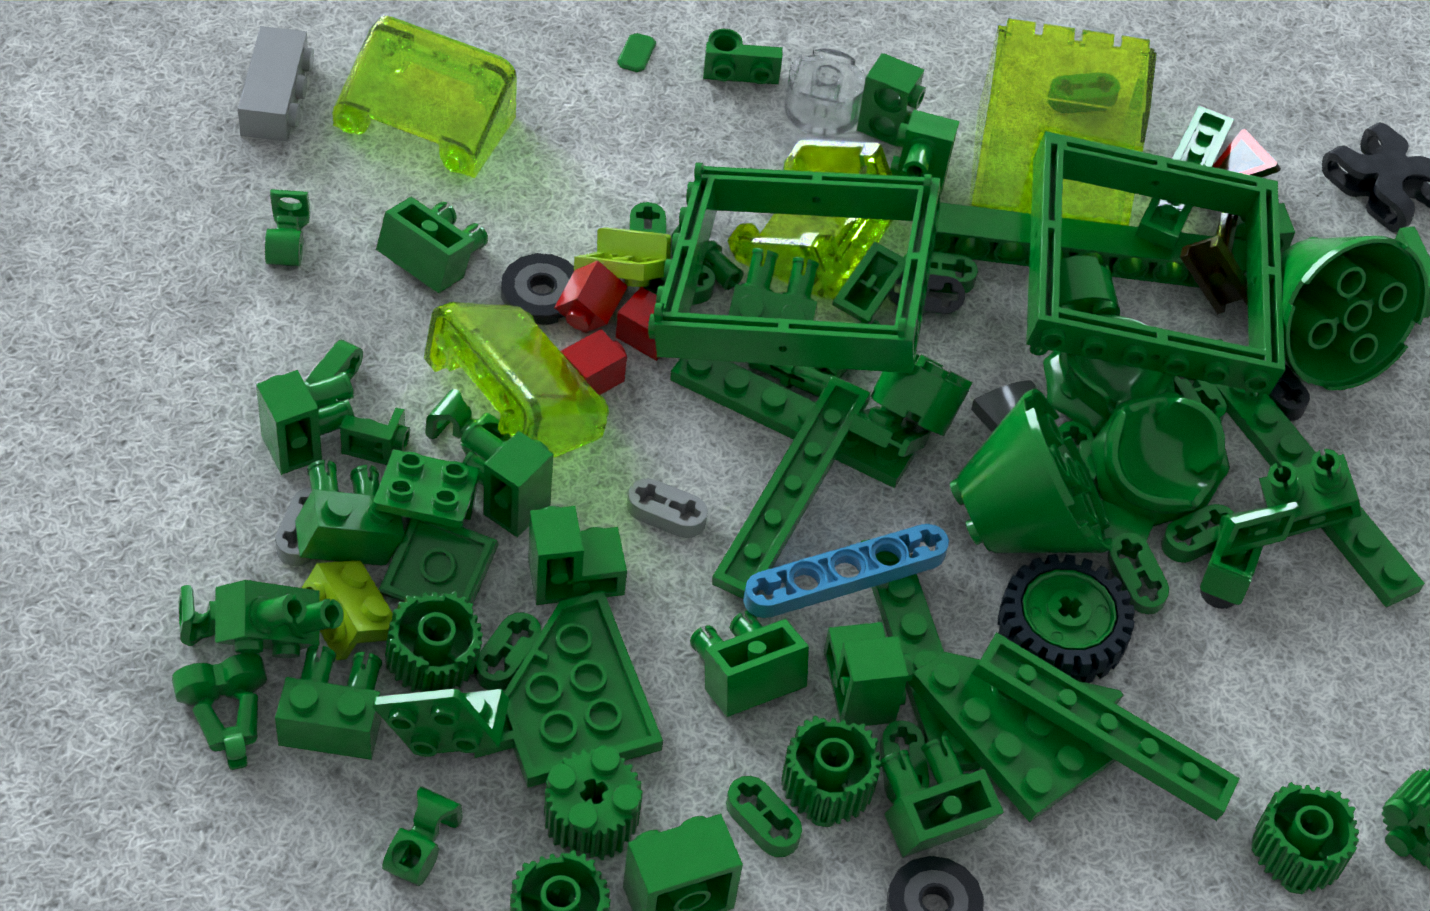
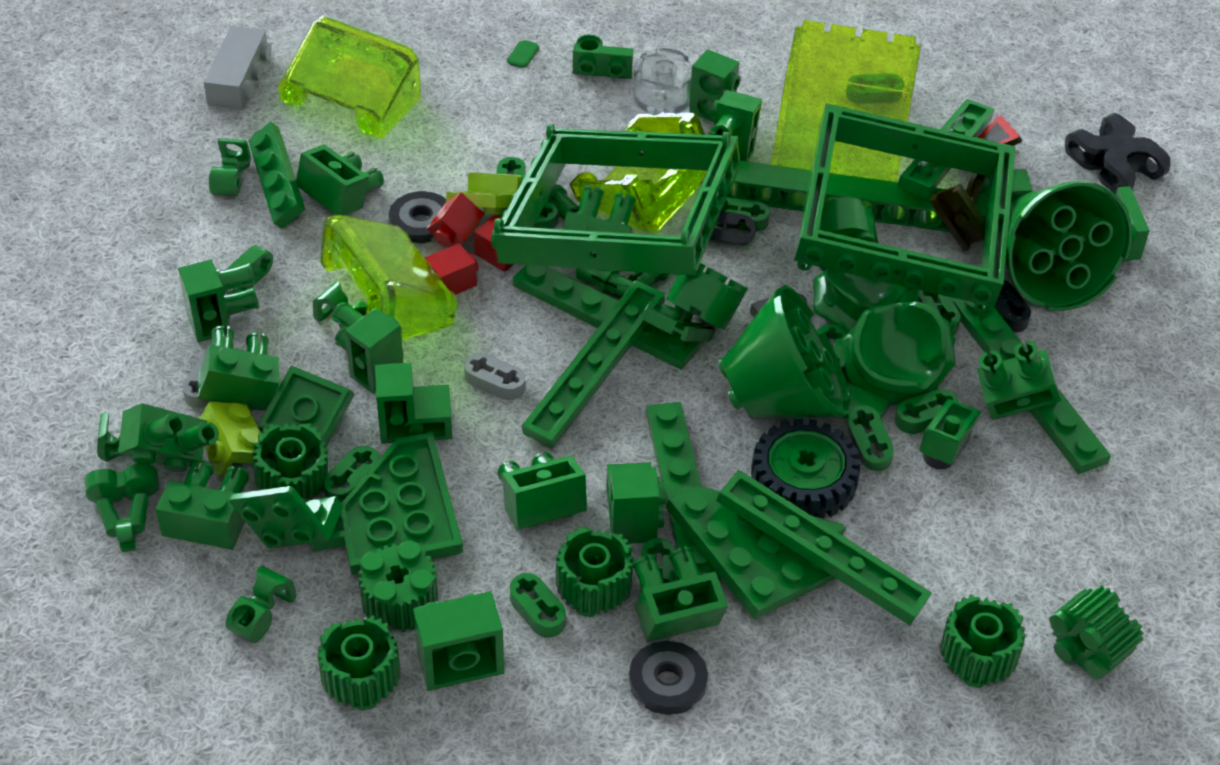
camera: 10 degrees right, 5 degrees down
(349, 236) = (276, 175): none -> green plate
(374, 440) = (270, 317): green bracket -> none
(427, 489) = (304, 351): green bracket -> none
(833, 585) = (615, 434): dark azure beam -> none
(870, 283) = (674, 215): green slope -> none
(1255, 528) = (968, 404): green slope -> none

